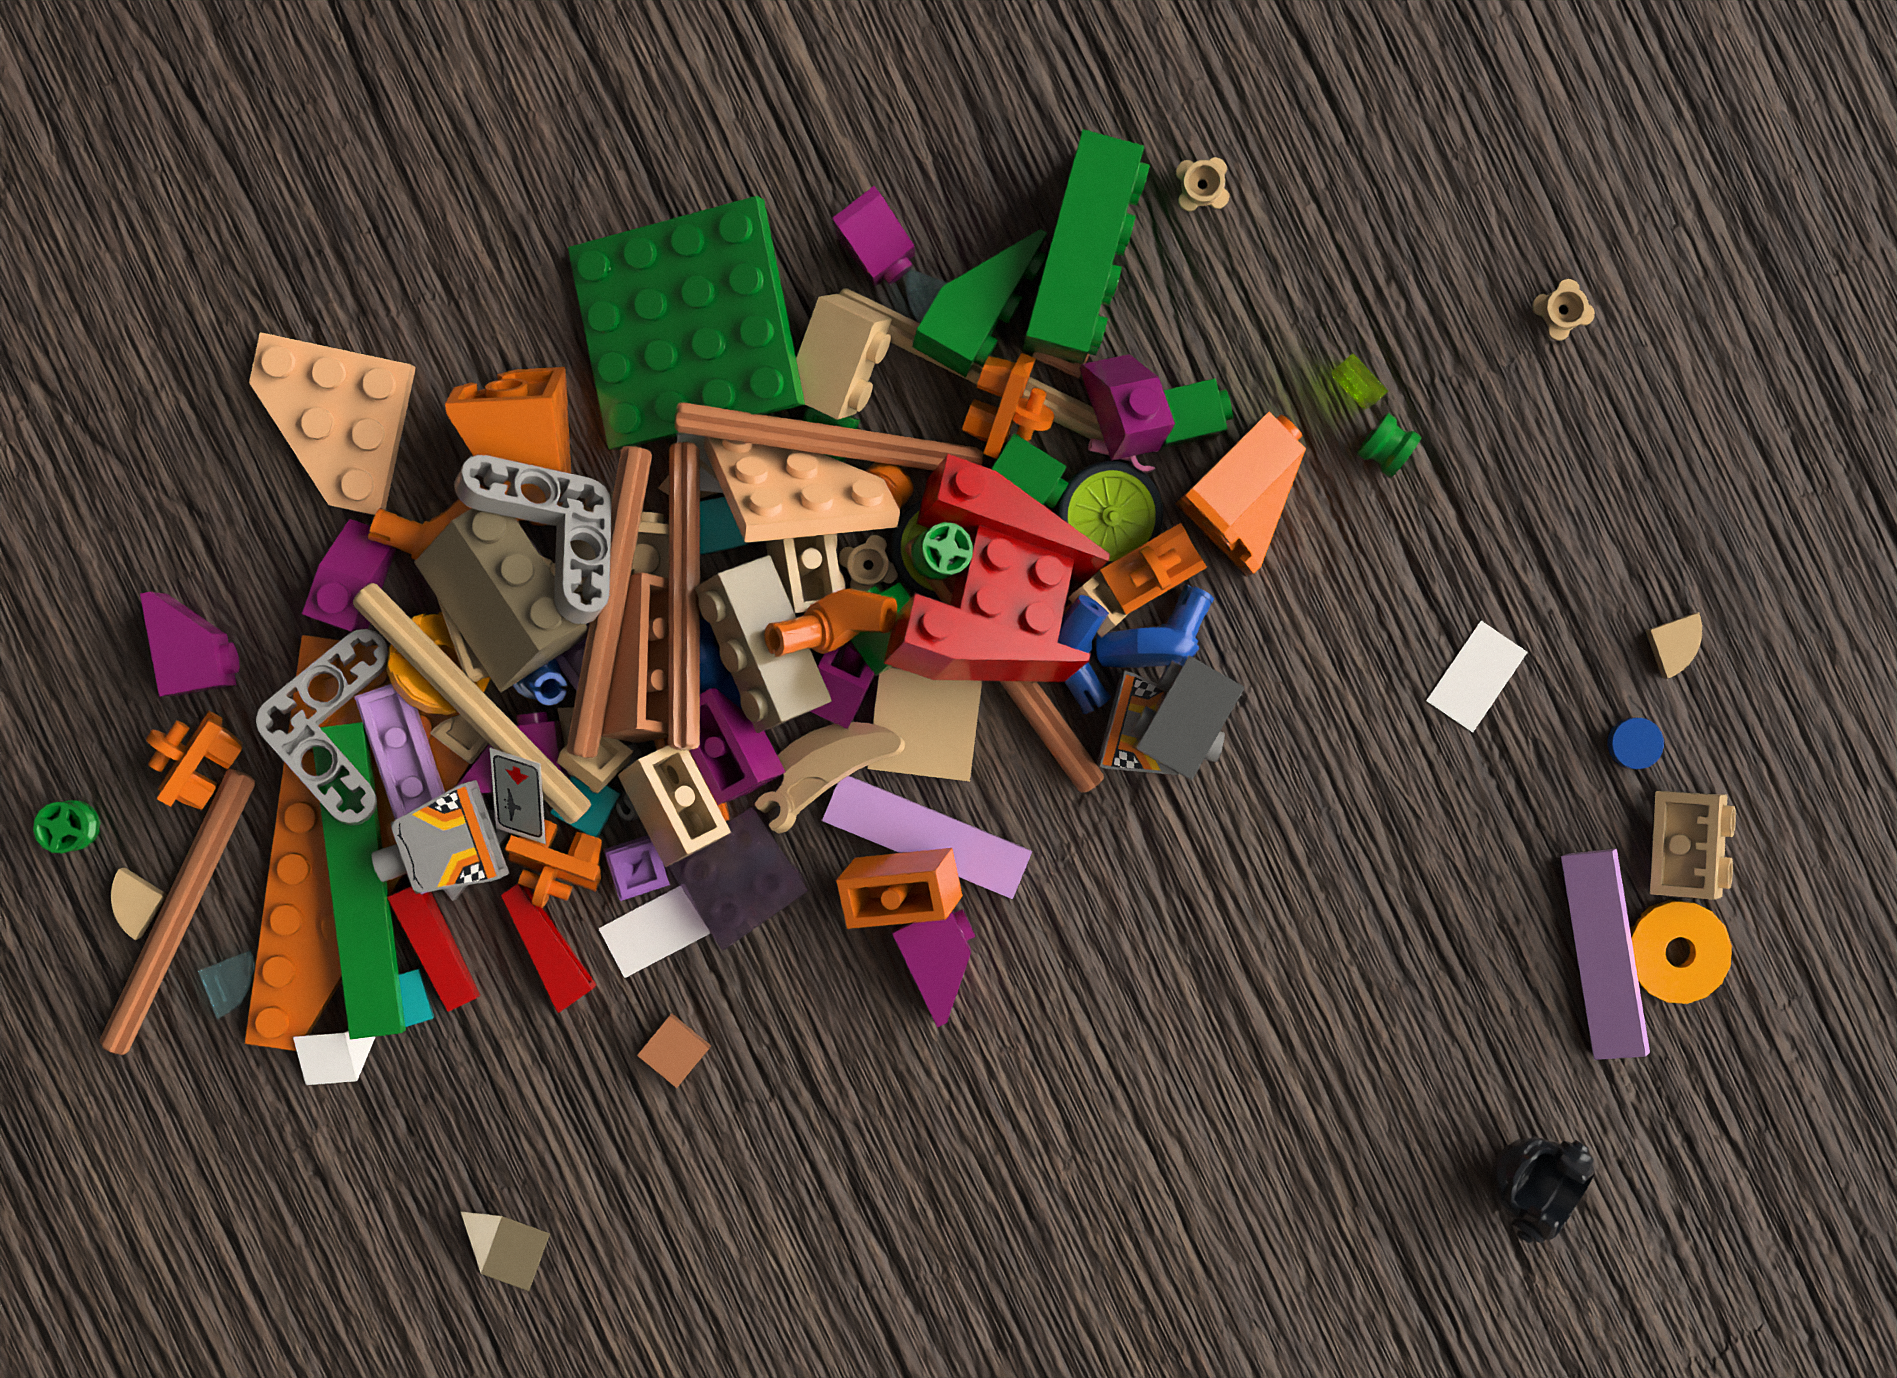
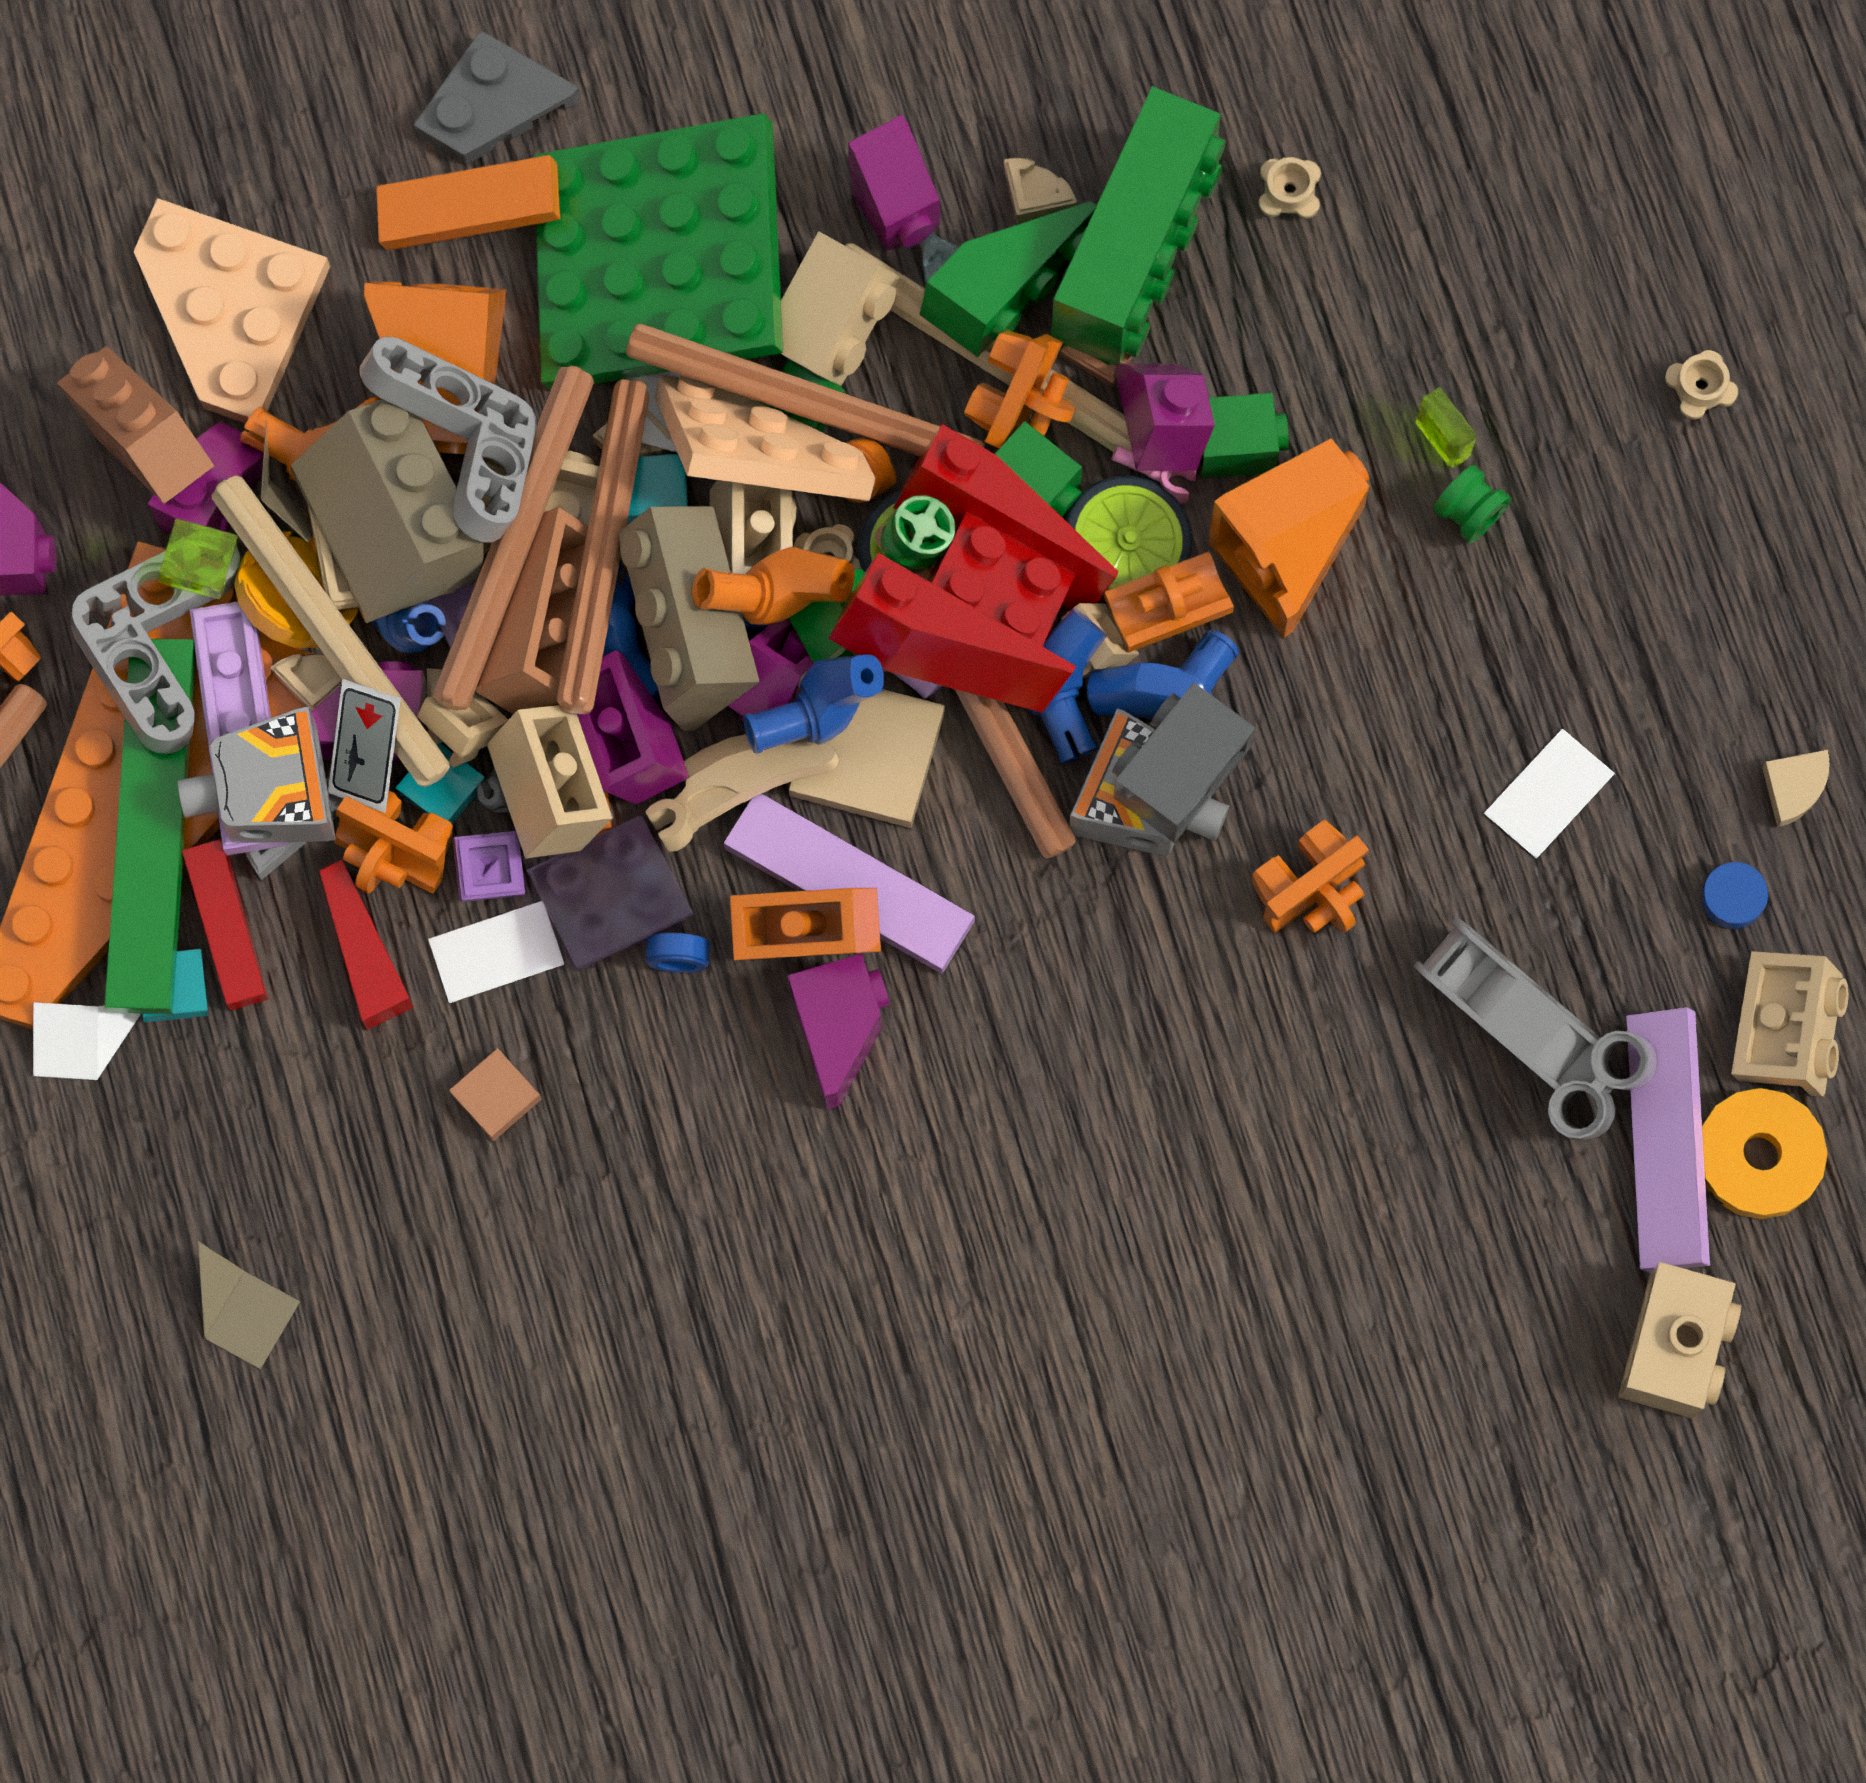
camera: 10 degrees right, 15 degrees down
(277, 549) = (135, 423): none -> nougat brick
(352, 659) = (198, 559): none -> clear neon green tile
(412, 590) = (280, 502): none -> dark tan sticker
(520, 300) = (468, 202): none -> orange tile
(522, 200) = (490, 99): none -> dark grey wing
(800, 918) = (677, 952): none -> blue tile
(885, 711) = (824, 706): none -> blue arm
(991, 216) = (1035, 190): none -> tan tile
(1314, 768) = (1333, 864): none -> orange hips
(1494, 884) = (1534, 1027): none -> light grey piece
(1541, 1184) = (1554, 1401): black helmet -> none
(1632, 1116) = (1679, 1341): none -> tan brick

